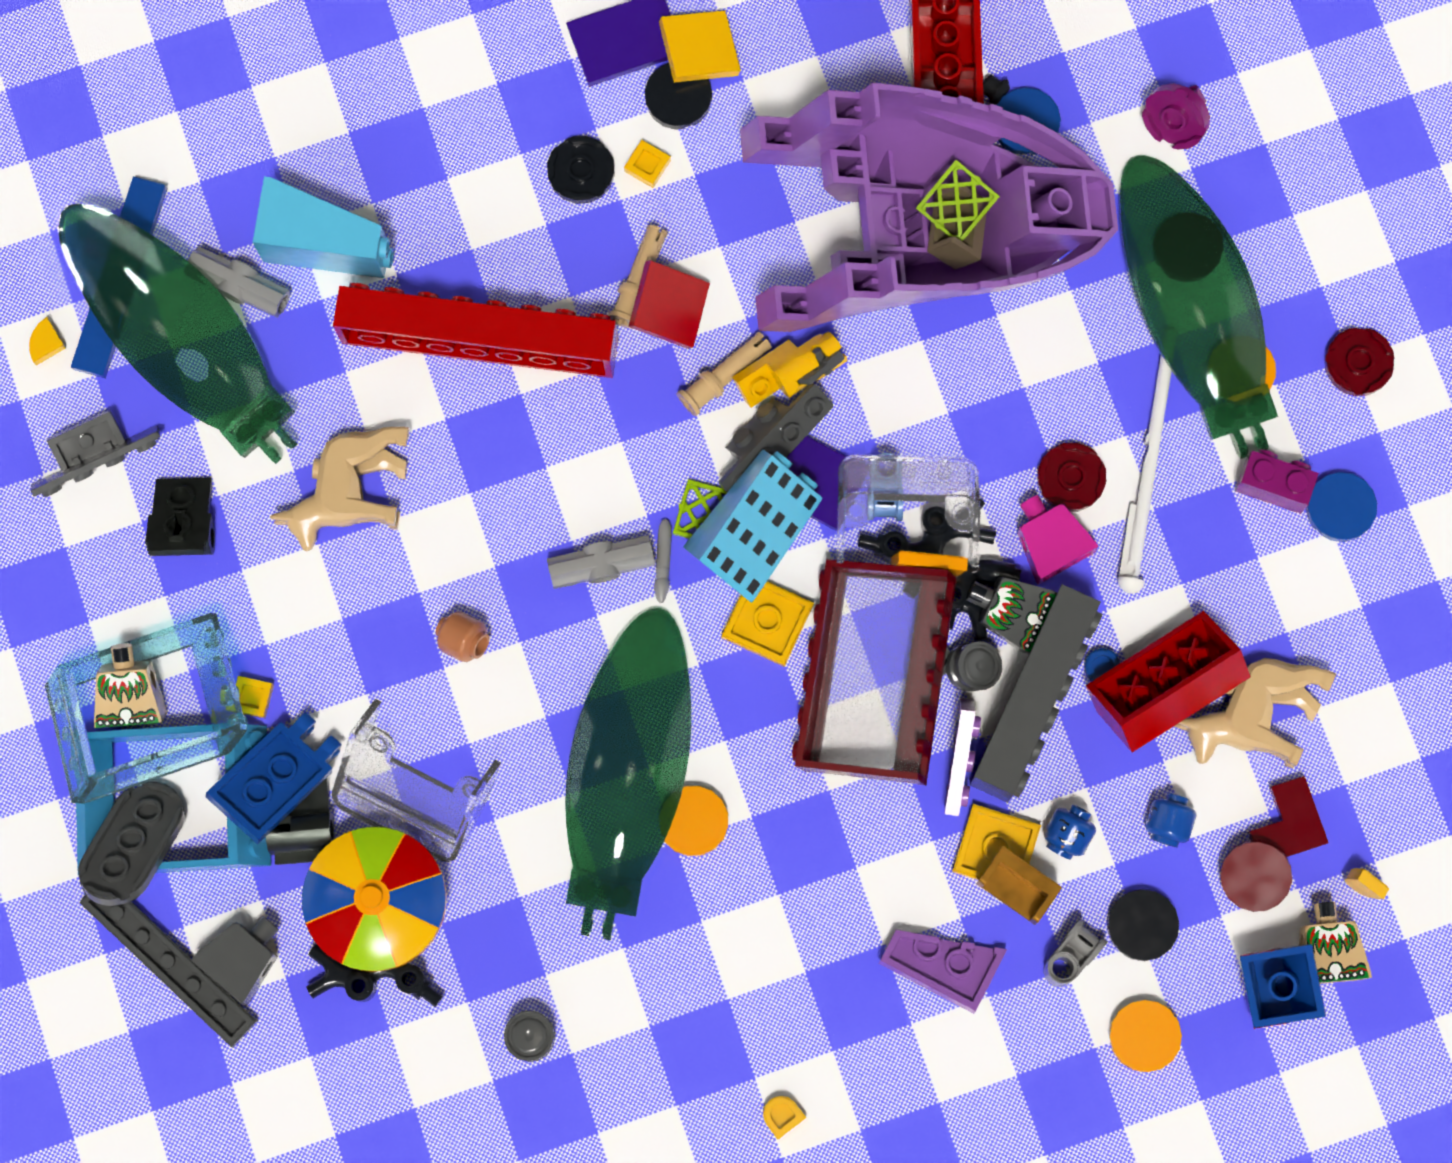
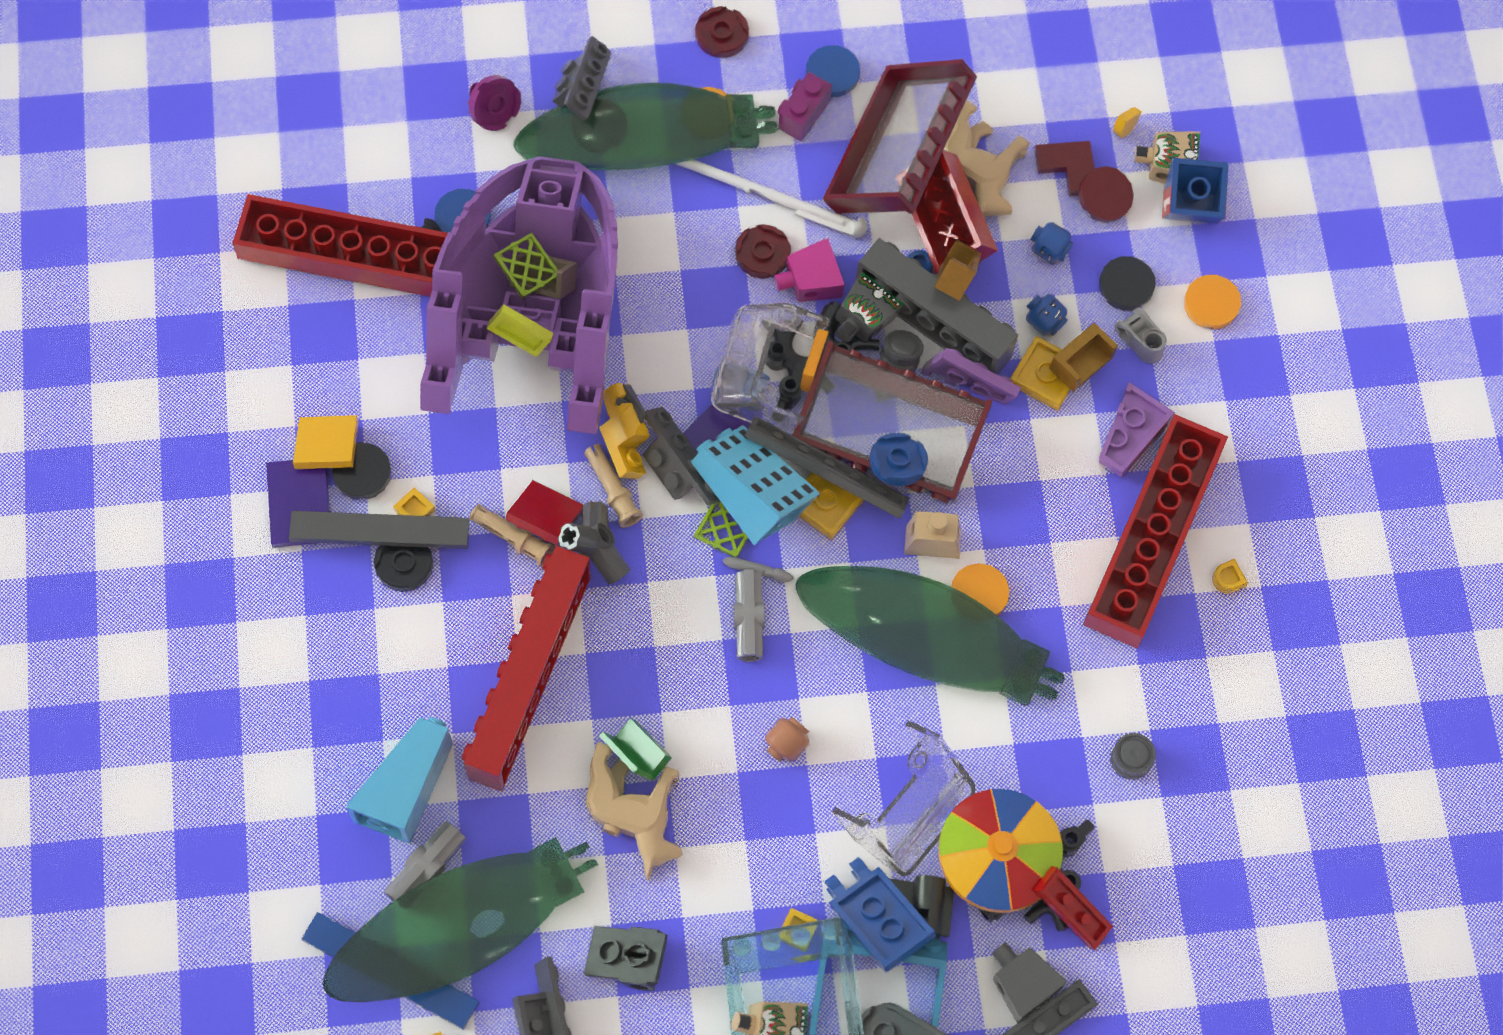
camera: 85 degrees left, 10 degrees down
(327, 995) = (1073, 908): none -> red tile
(408, 471) = (638, 750): none -> panel
(607, 132) = (379, 529): none -> dark grey tile
(644, 366) = (595, 541): none -> dark grey piece
(746, 754) = (933, 535): none -> tan torso
(797, 607) = (826, 467): none -> dark grey tile
(814, 1013) = (1155, 531): none -> red brick
(827, 688) = (898, 459): none -> blue tile
(862, 212) = (520, 330): none -> neon yellow tile
(1077, 703) = (958, 270): none -> pearl gold panel
(1236, 210) = (582, 79): none -> dark grey bracket
(1252, 602) = (900, 137): none -> window

